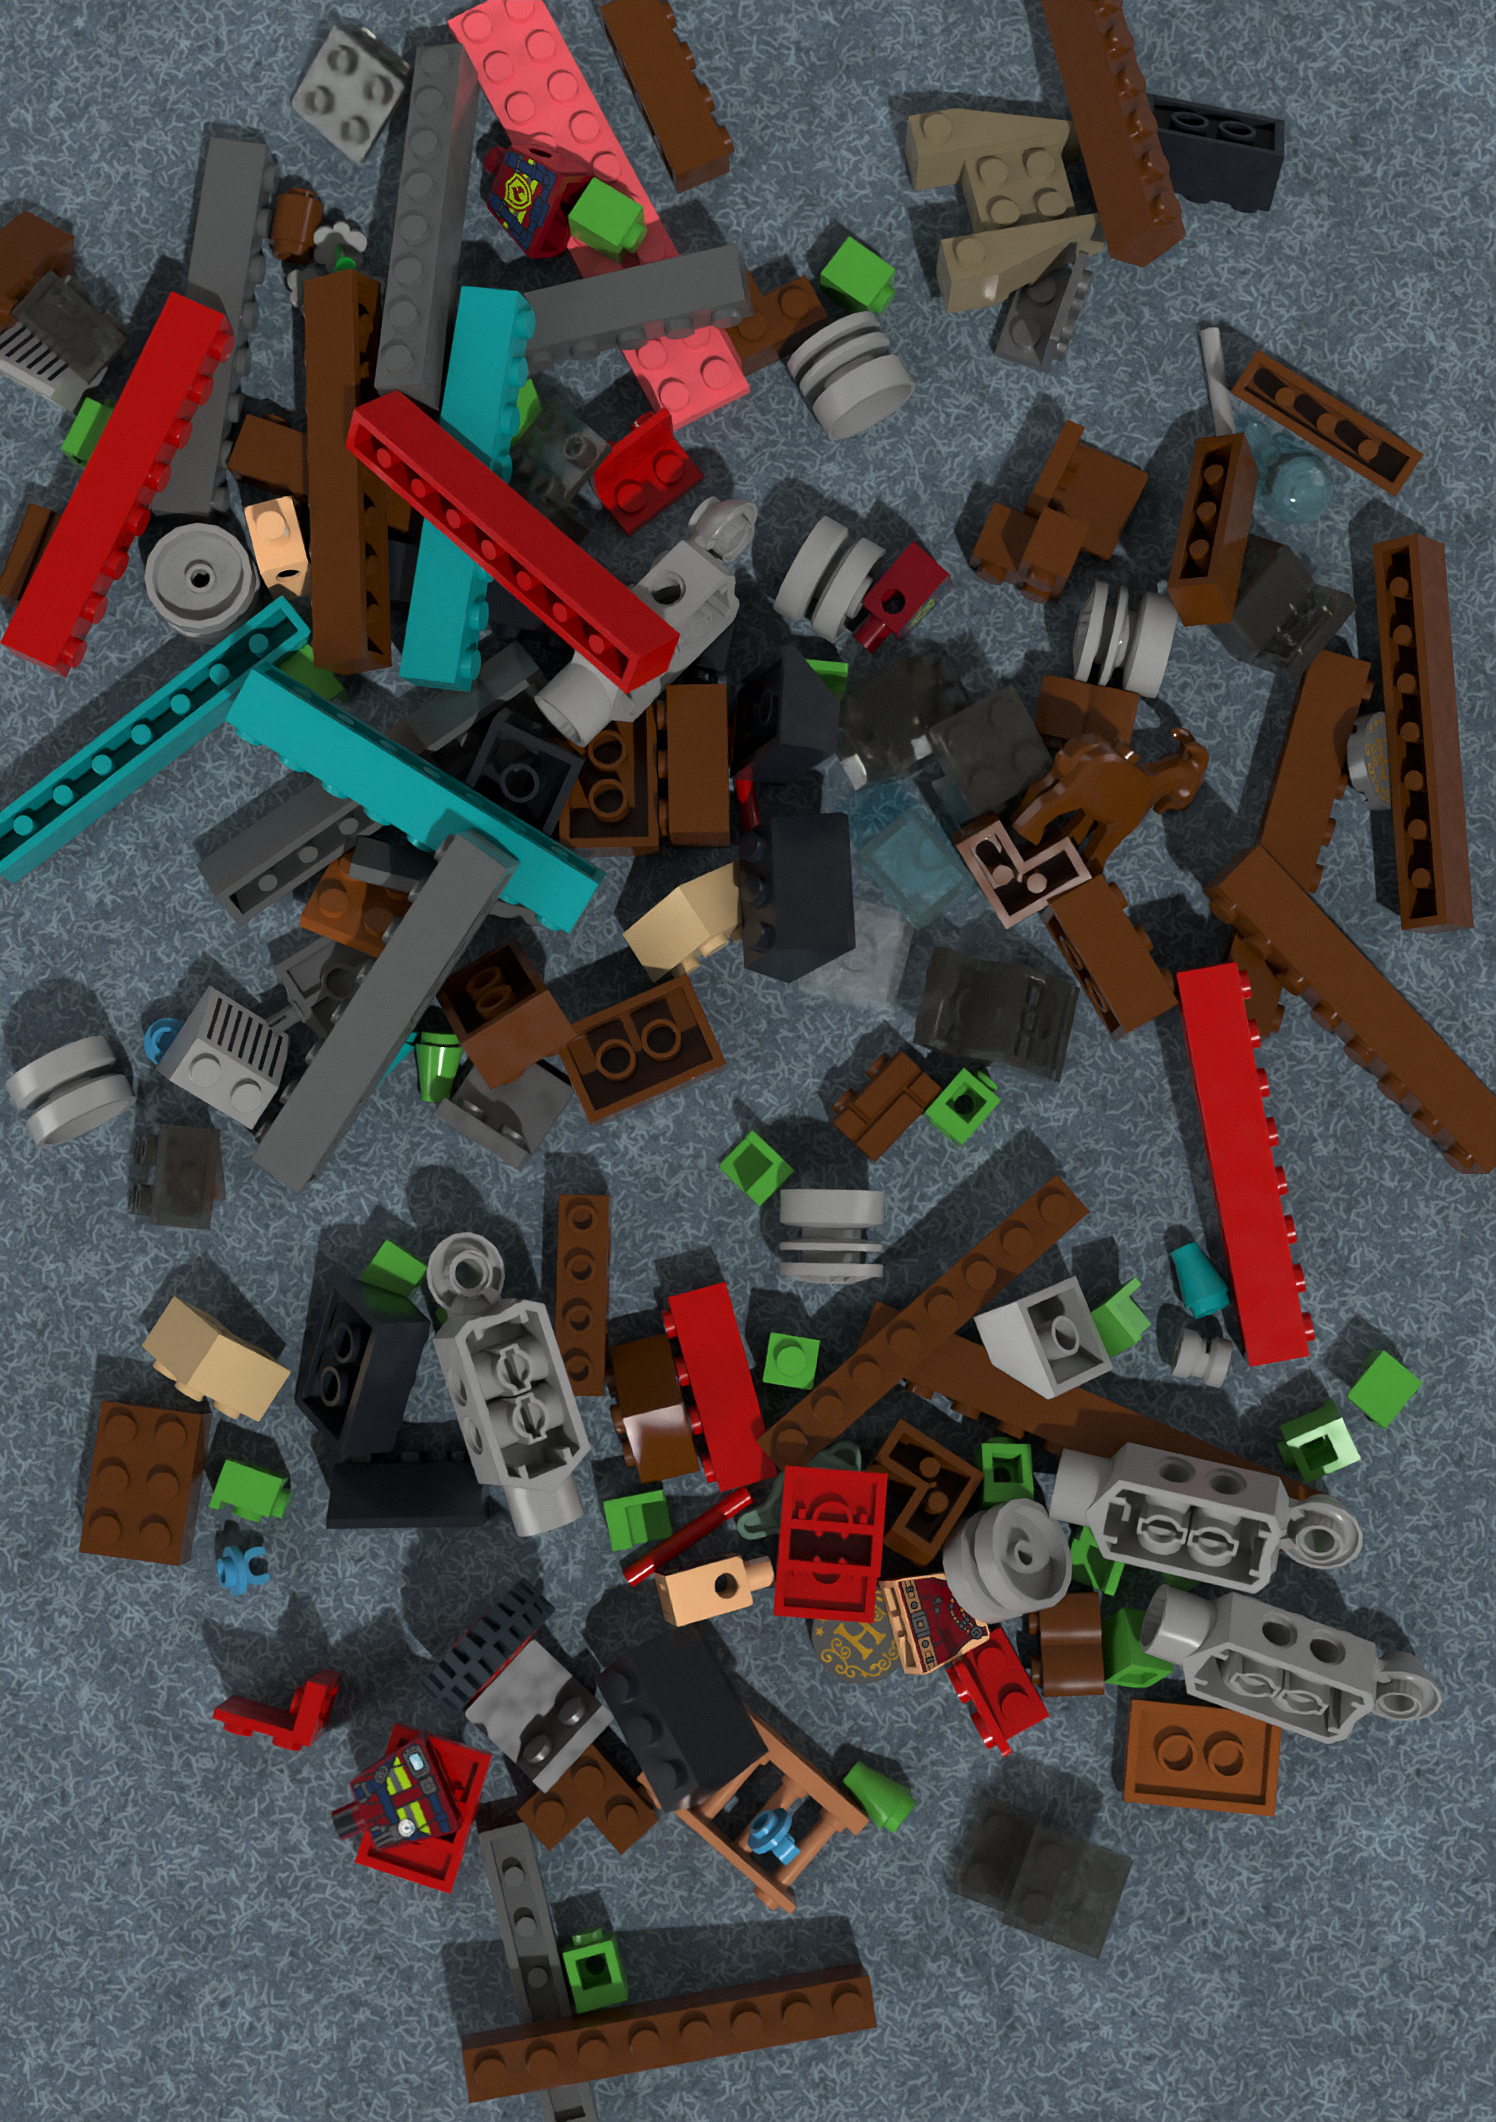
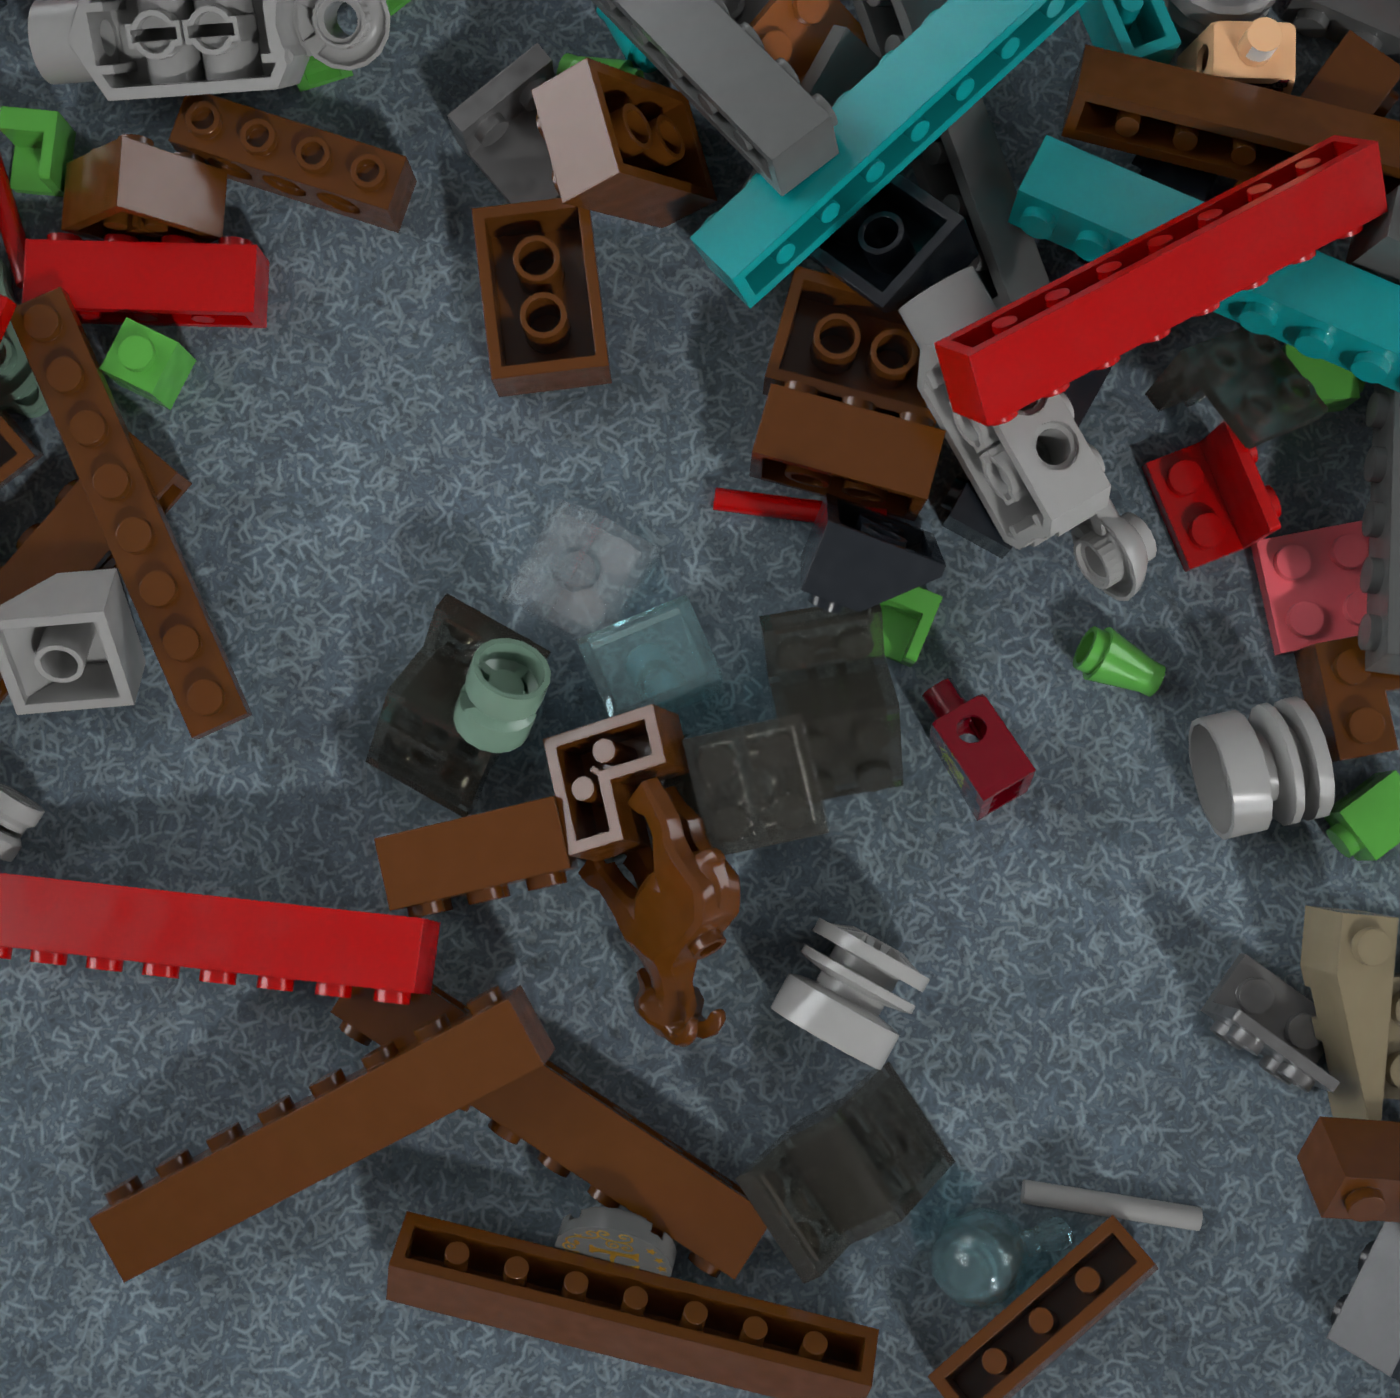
camera: 105 degrees right, 0 degrees up
(302, 668) = (1062, 52): bright green panel -> none
(689, 923) = (671, 400): tan brick -> none
(756, 1168) = (374, 395): bright green panel -> none
(796, 510) = (1115, 661): none -> bright green cone
(796, 894) = (661, 513): black slope -> none
(824, 577) = (1023, 667): light grey wheel -> none
(831, 1234) = (266, 443): light grey wheel -> none
(885, 1105) = (397, 554): reddish brown brick -> none
(957, 1126) = (353, 627): bright green brick -> none
(983, 968) = (501, 695): none -> sand green wheel
(1028, 551) = (989, 915): reddish brown brick -> none
(1078, 708) = (775, 918): reddish brown brick -> none
(1089, 489) = (1041, 1003): reddish brown bracket -> none
(1119, 1318) = (74, 741): bright green panel -> none
(1199, 1282) = (86, 847): teal cone -> none
(1213, 530) = (947, 1138): reddish brown brick -> none

